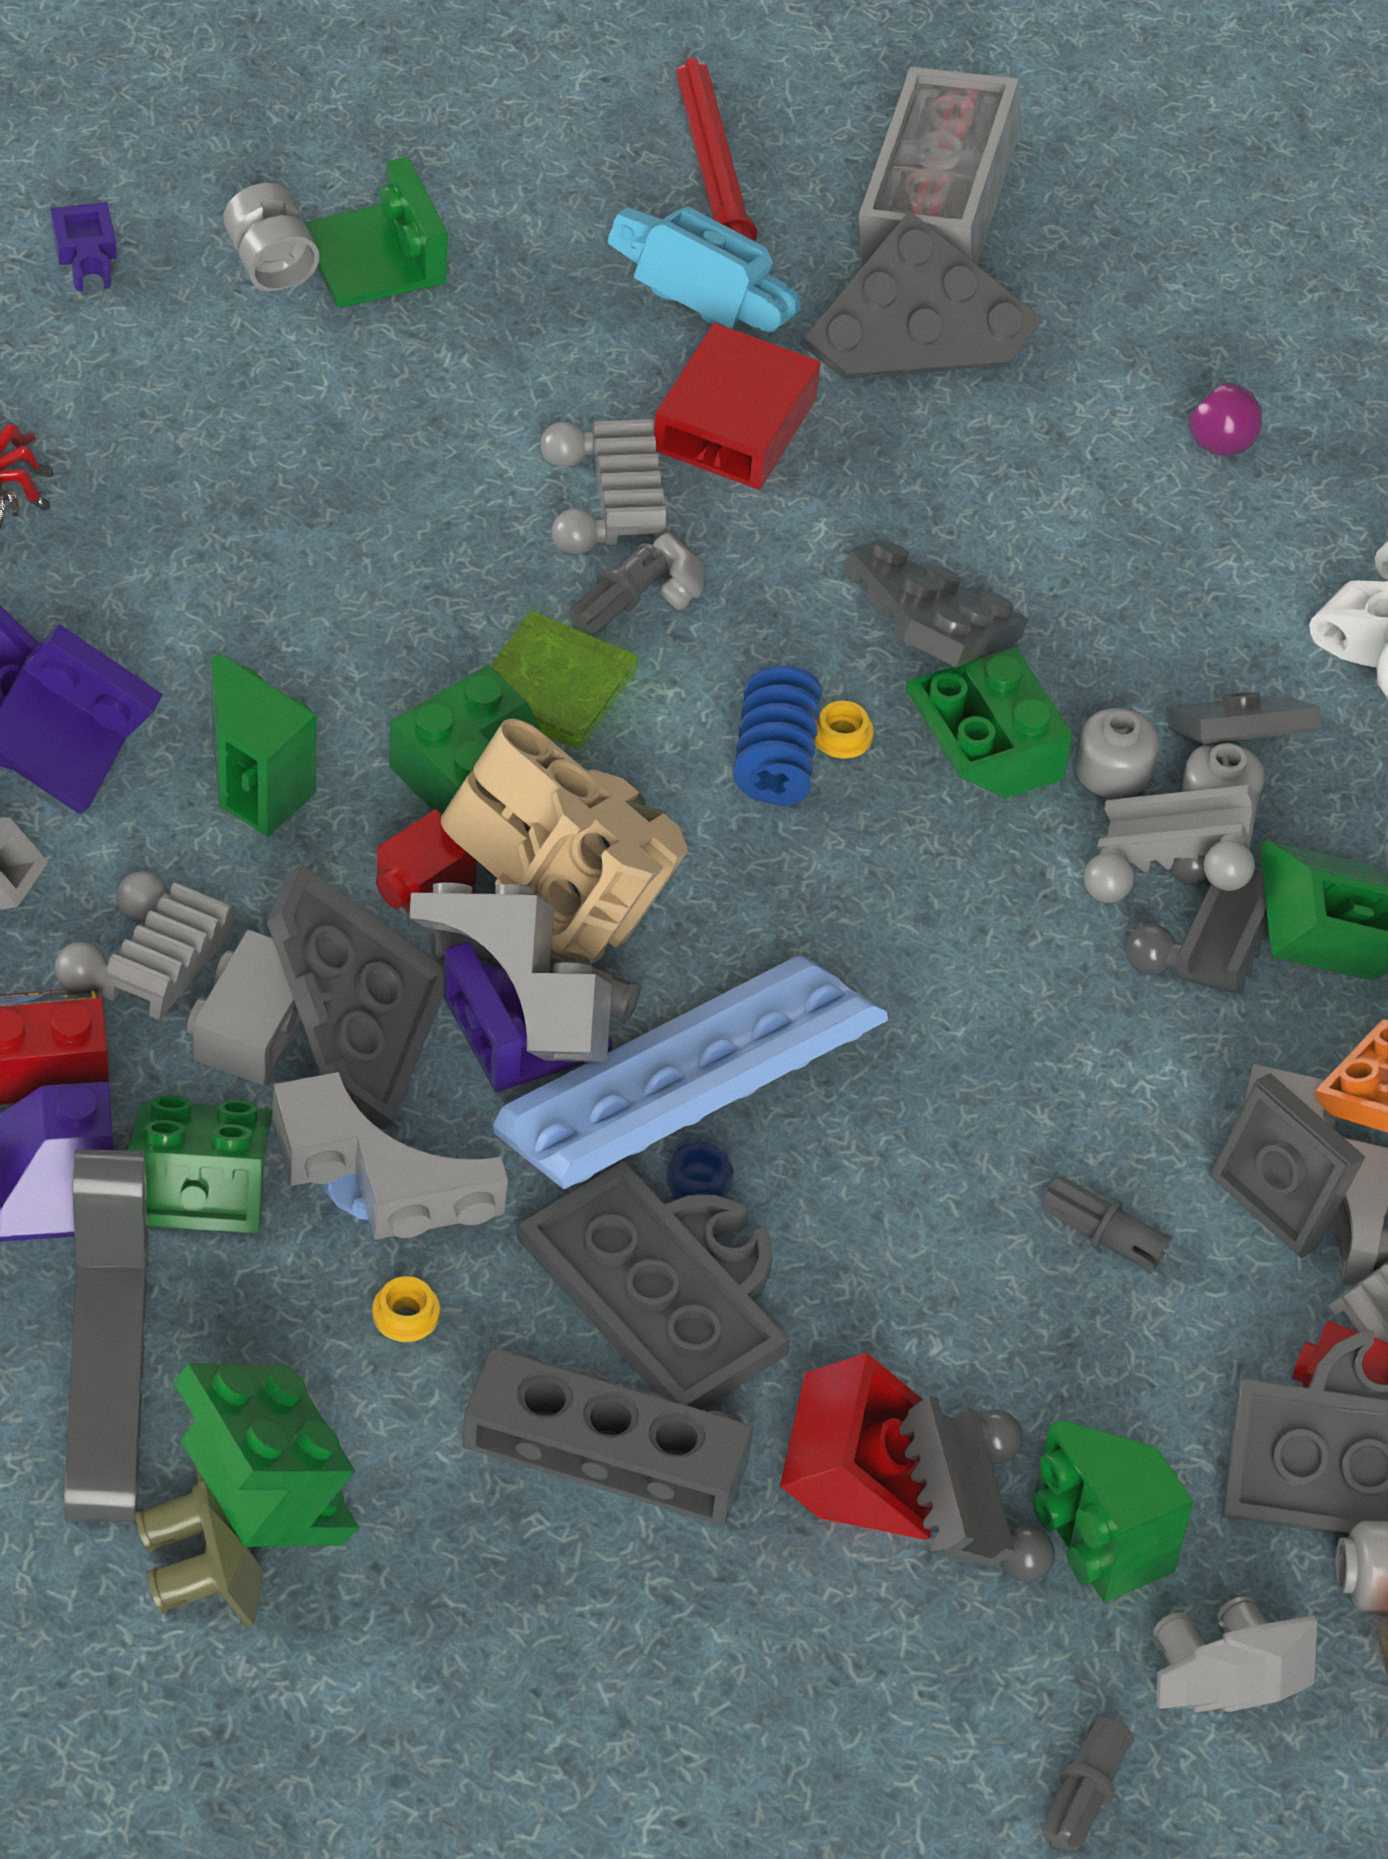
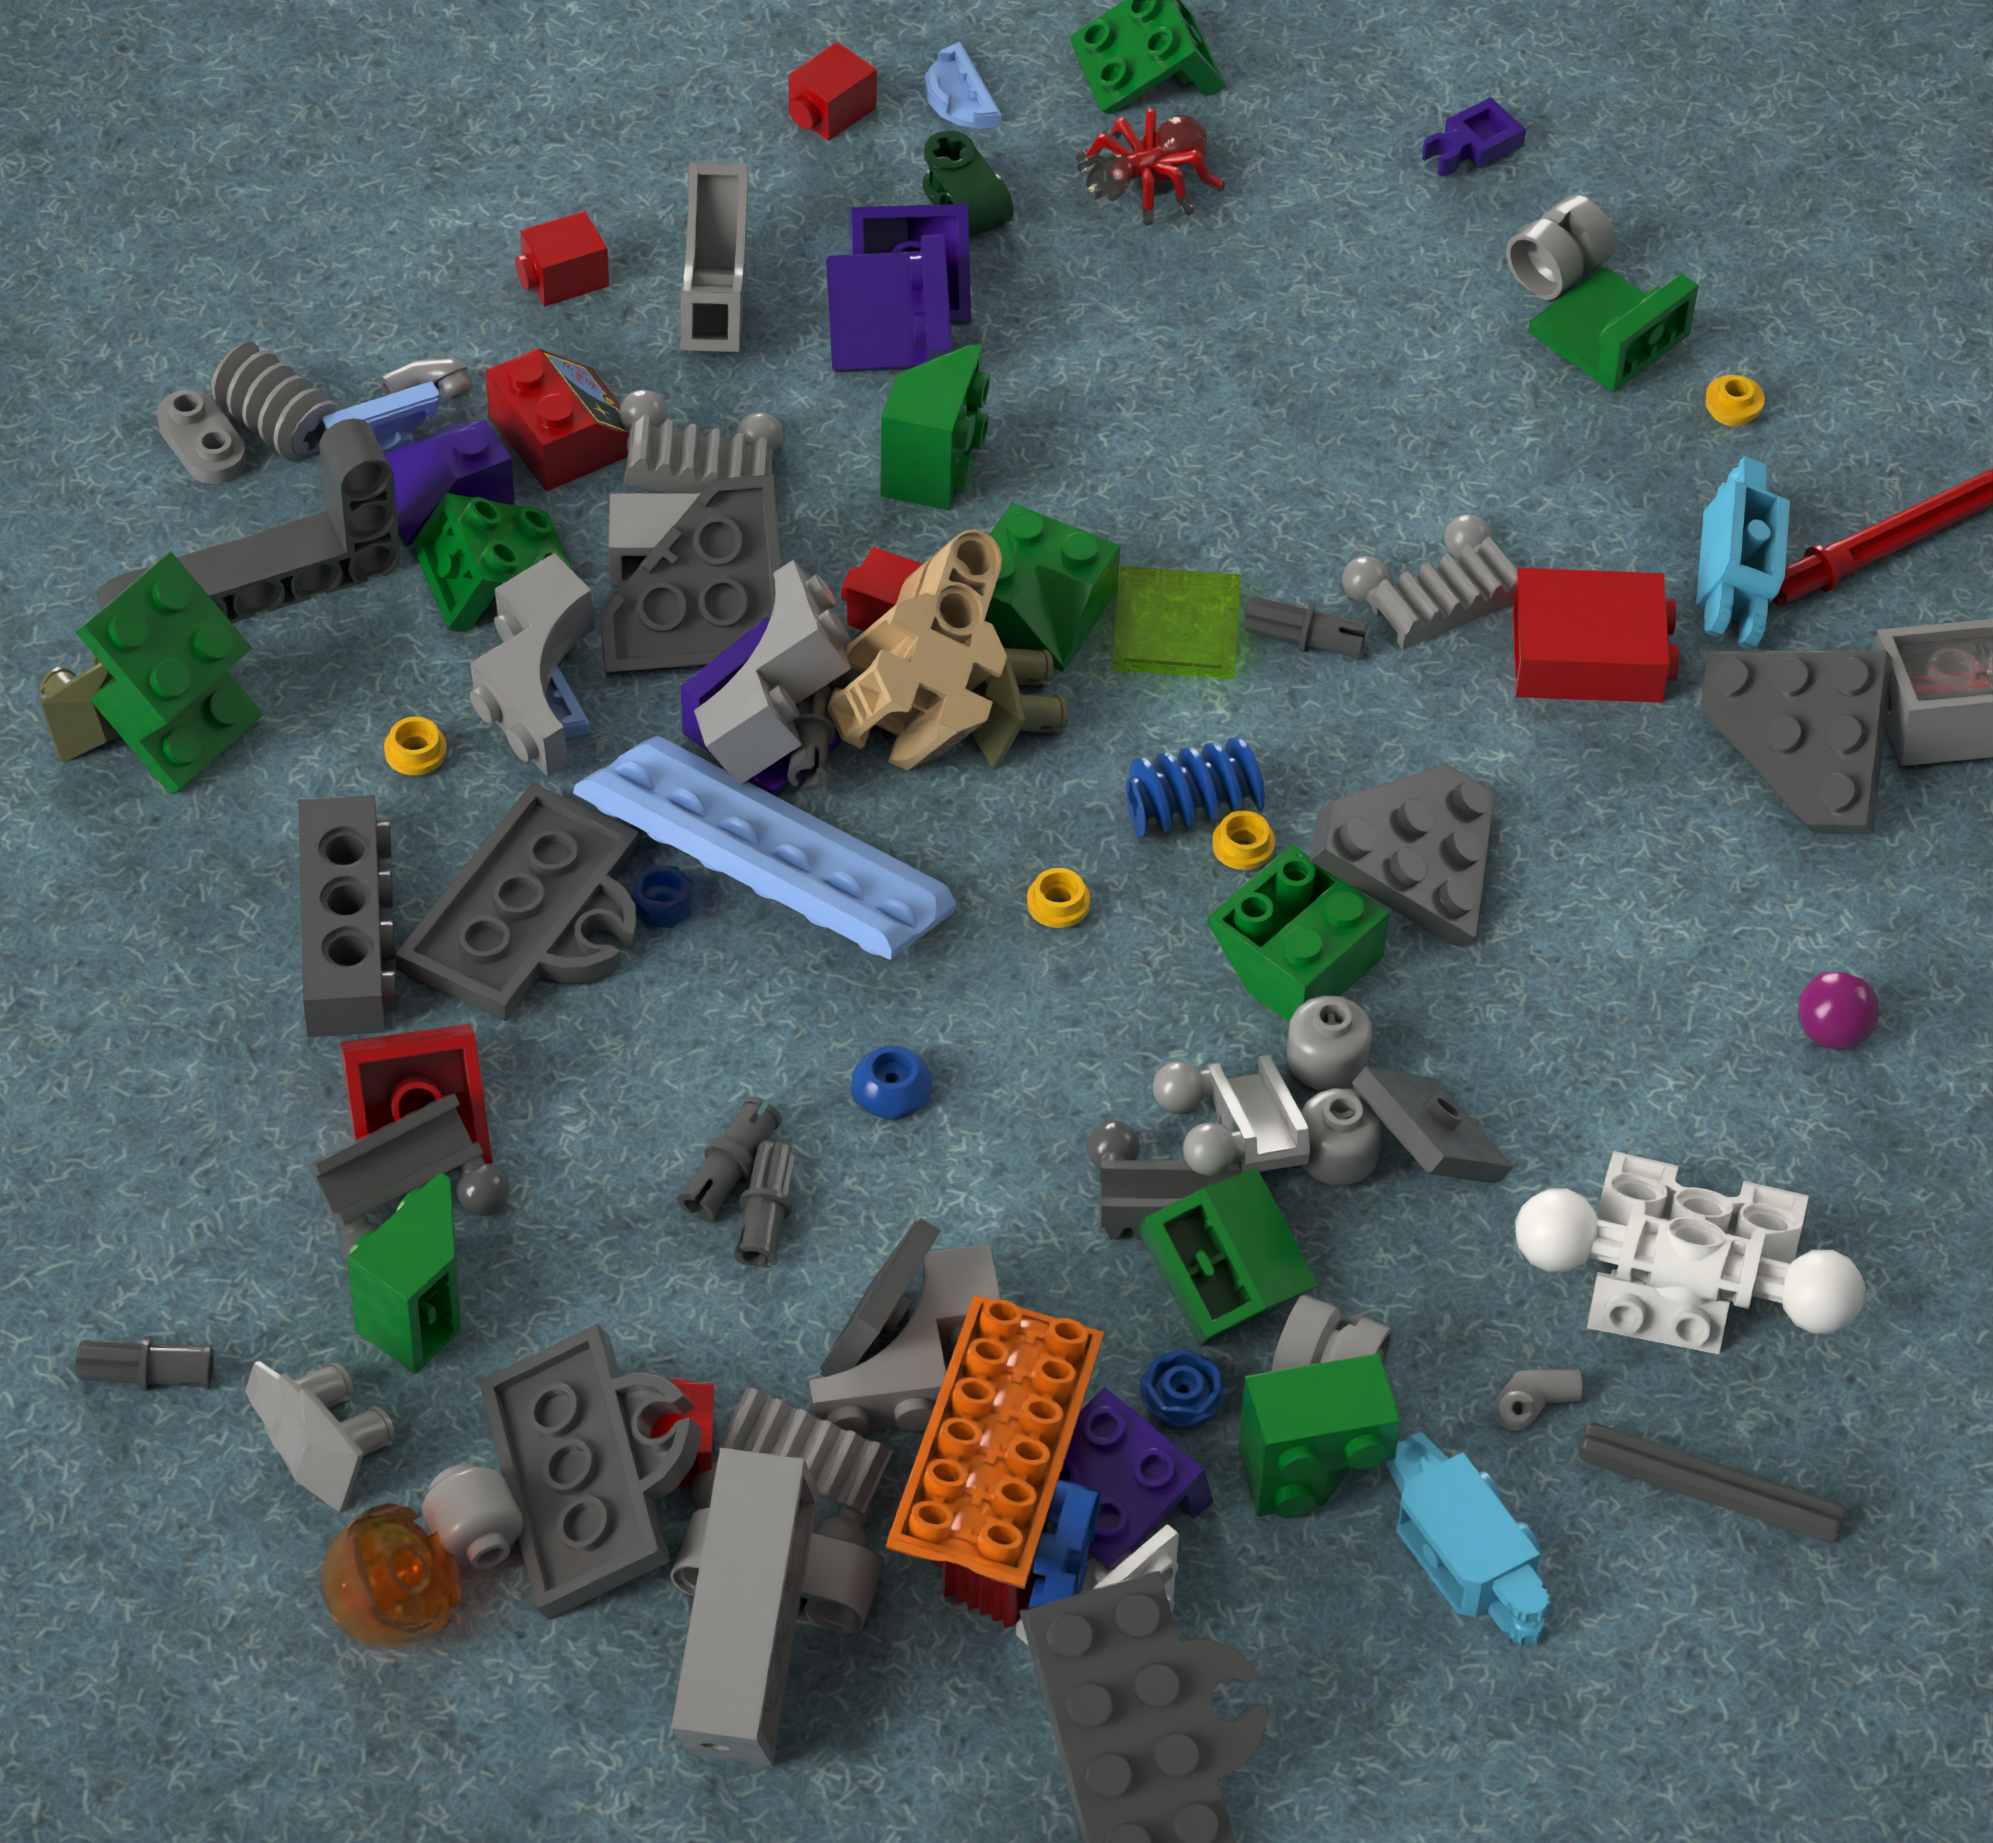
camera: 70 degrees right, 0 degrees up
(506, 209) = (1734, 400): none -> yellow plate
(684, 567) = (1361, 670): light grey arm -> none
(845, 870) = (1058, 884): none -> yellow plate
(999, 1100) = (890, 1099): none -> blue plate
(1042, 1233) = (729, 1159): none -> dark grey pin

